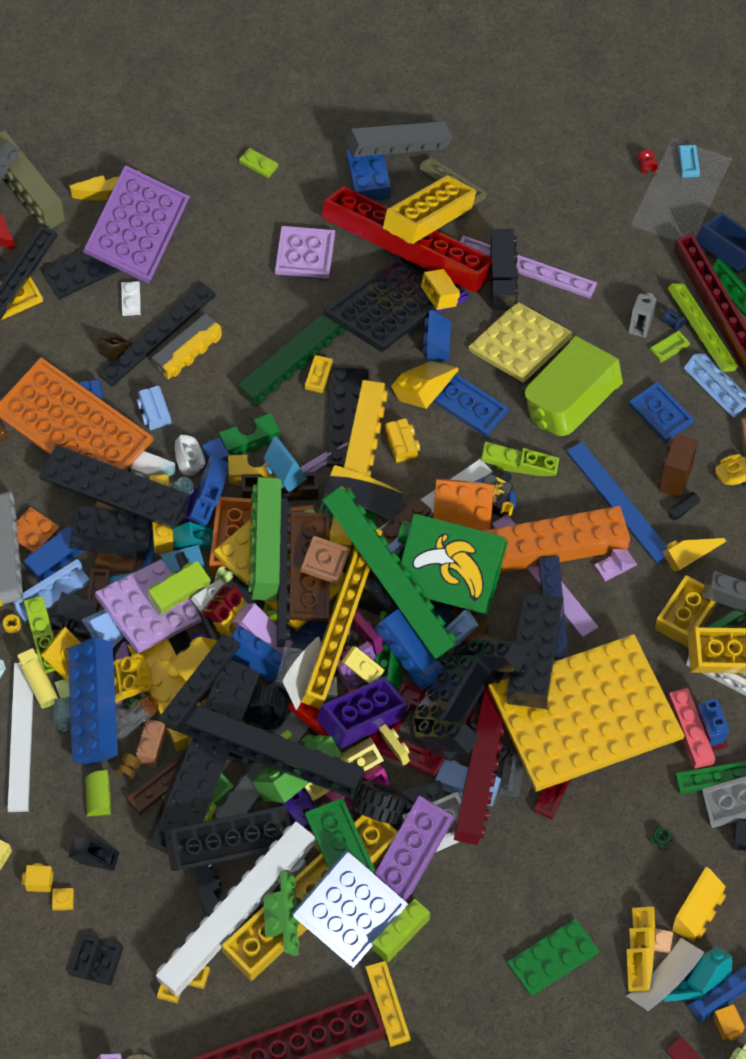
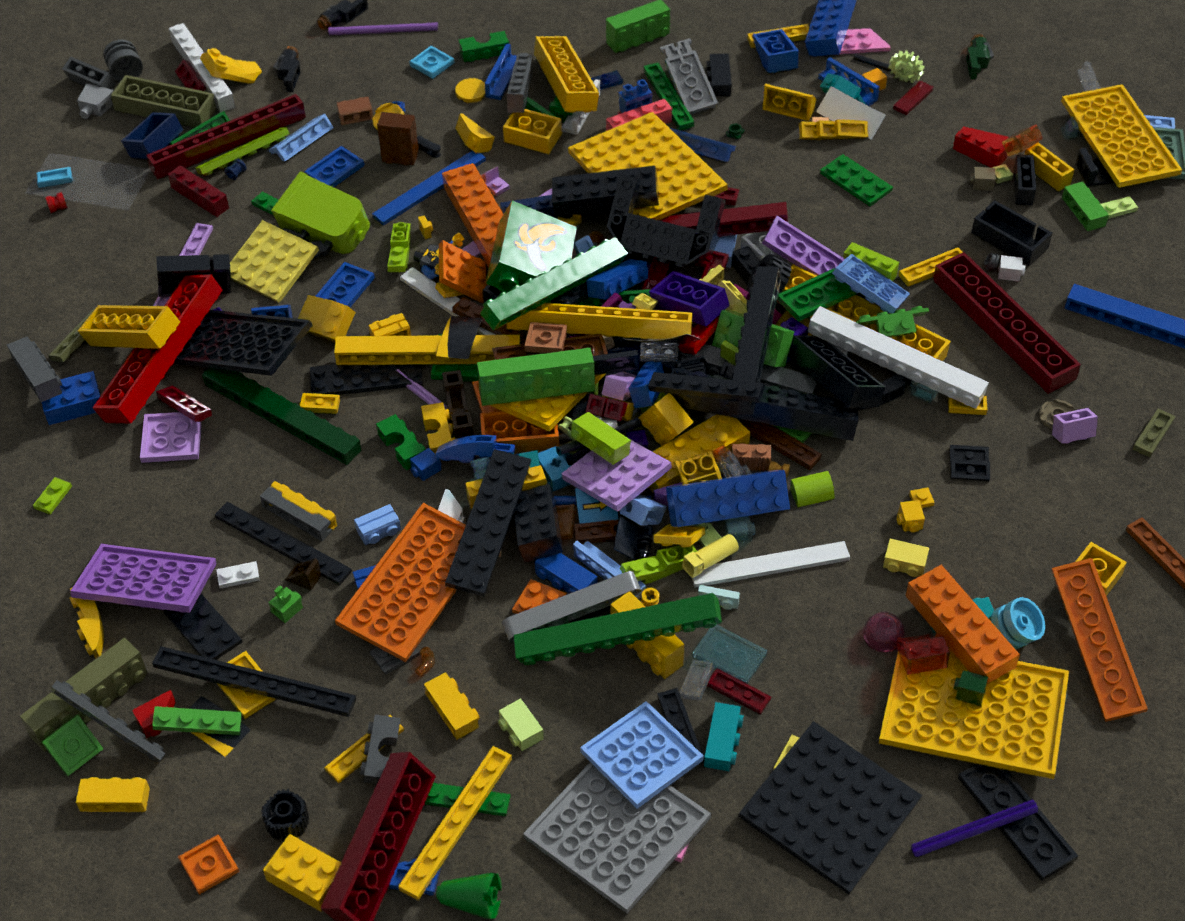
camera: 100 degrees left, 10 degrees down
(83, 330) = (285, 603): none -> bright green brick
(93, 853) = (873, 482): black slope -> none
(188, 455) = (431, 486): white piece -> none
(283, 465) = (444, 388): dark azure slope -> none
(335, 259) = (184, 403): none -> dark red plate
(440, 289) = (223, 310): yellow brick -> none
(548, 488) = (425, 227): none -> yellow plate
(619, 346) = (264, 202): none -> green plate
(639, 788) = (706, 146): none -> blue fence
(640, 282) = (198, 191): none -> dark red brick
(645, 306) = (234, 183): light grey torso -> none
(669, 346) = (263, 172): lime tile -> none

